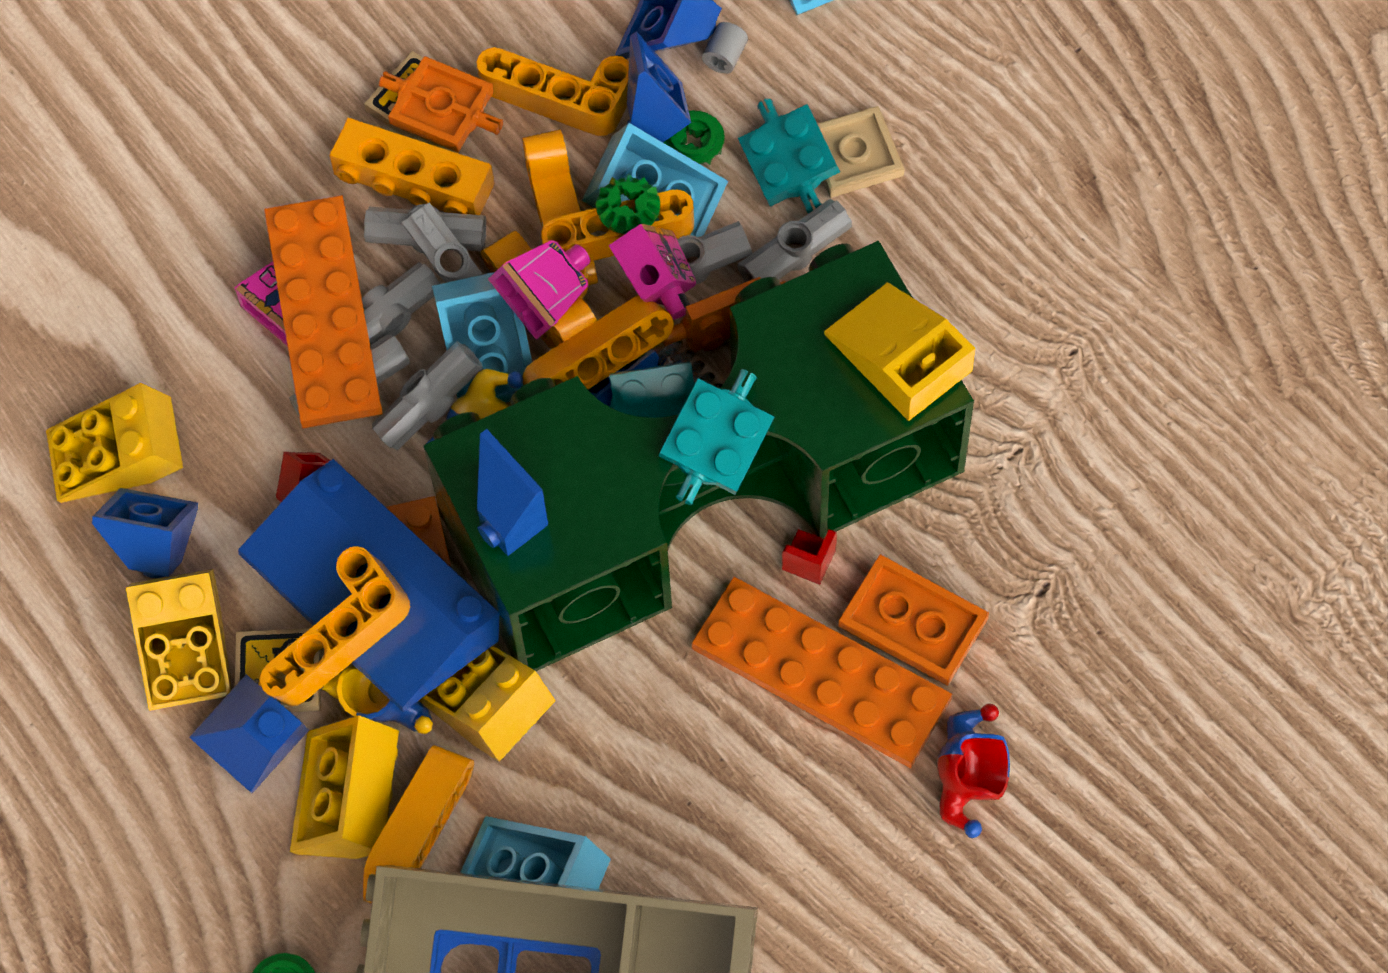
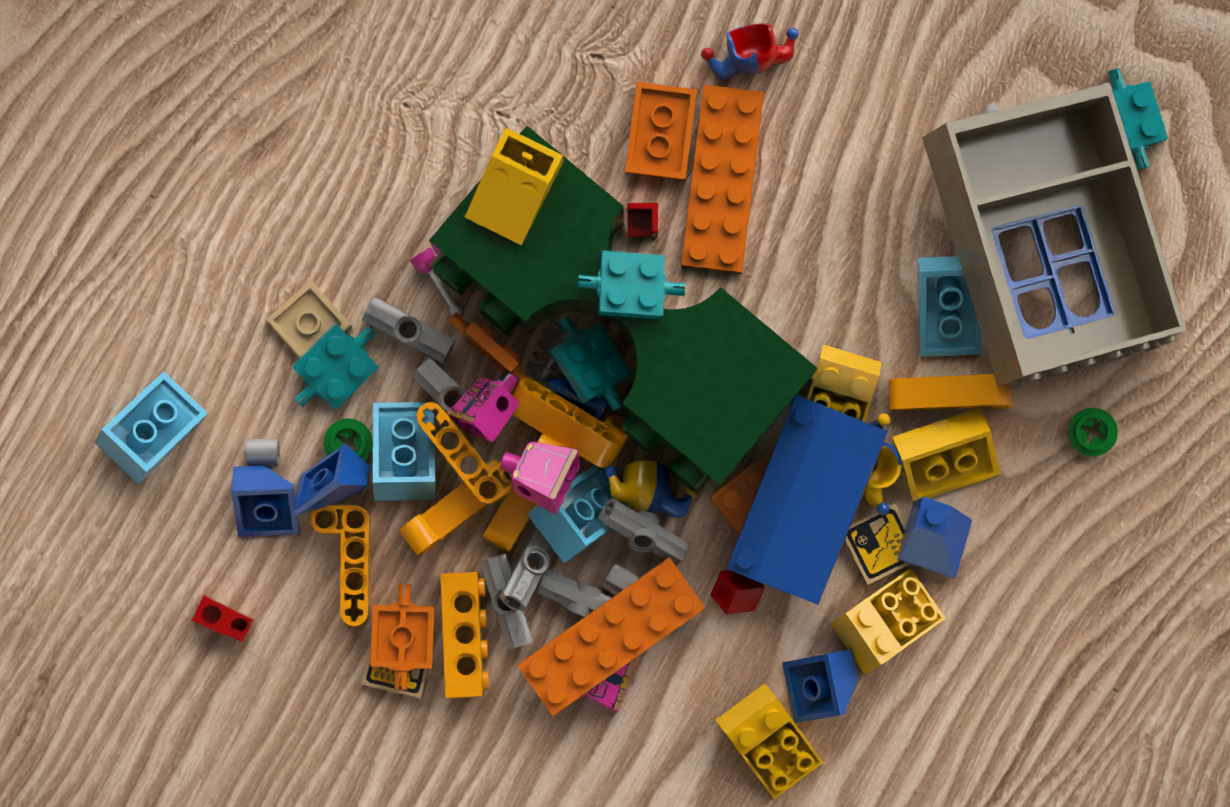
camera: 110 degrees left, 20 degrees up
(331, 631) = (861, 499): light orange beam -> none
(507, 498) = (747, 401): blue slope -> none
(622, 218) = (462, 445): green gear -> none

